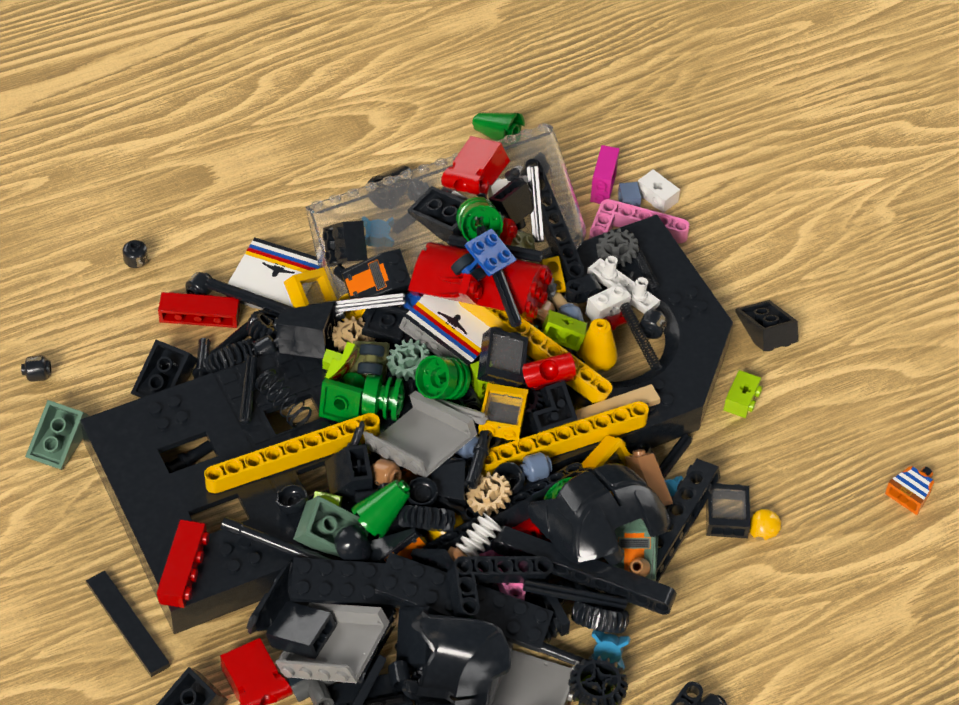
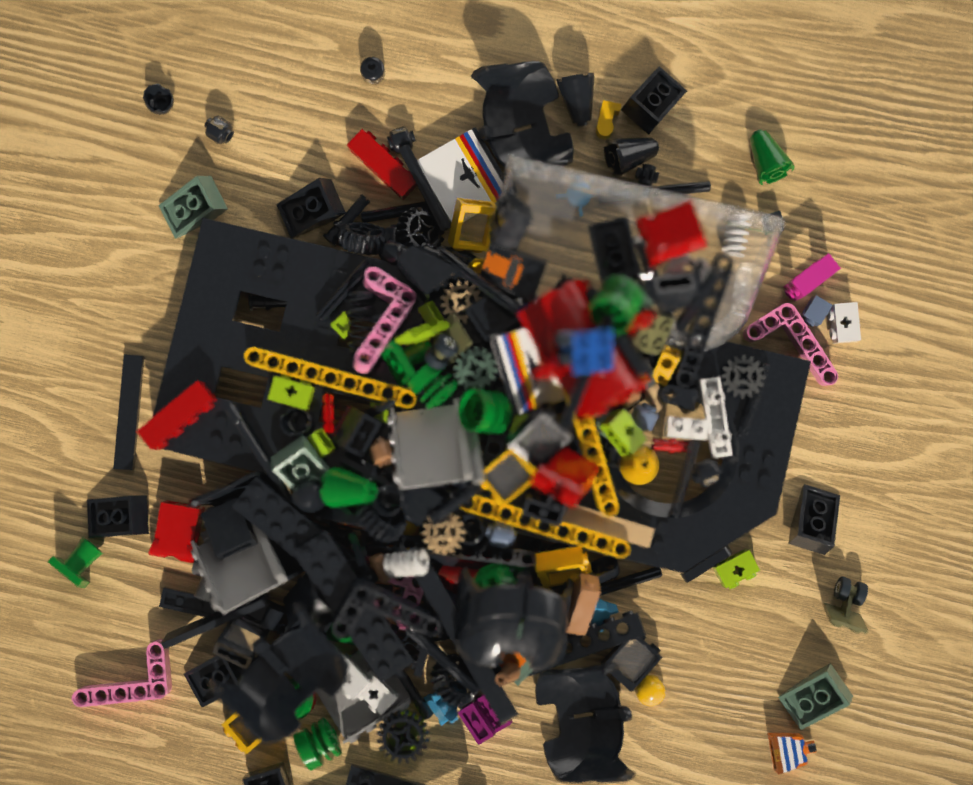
camera: 40 degrees right, 35 degrees up
(265, 483) = (280, 394): none -> lime brick
(268, 416) = (341, 325): none -> lime tile
(271, 206) = (517, 100): none -> black piece
(296, 362) = (387, 321): none -> bright pink beam
(312, 479) = (328, 413): none -> red axle
(317, 173) = (578, 97): none -> black cone
(350, 175) = (604, 125): none -> yellow leg
(378, 147) = (653, 100): none -> black slope
(520, 672) = (359, 680): none -> white brick
(542, 679) = (385, 697): none -> white brick
(652, 638) = (481, 719): none -> magenta slope
(711, 556) = (588, 744): none -> black piece
(716, 406) = (706, 564): none -> black beam
(848, 353) = (849, 595): none -> olive plate
(892, 437) = (816, 697): none -> sand green slope

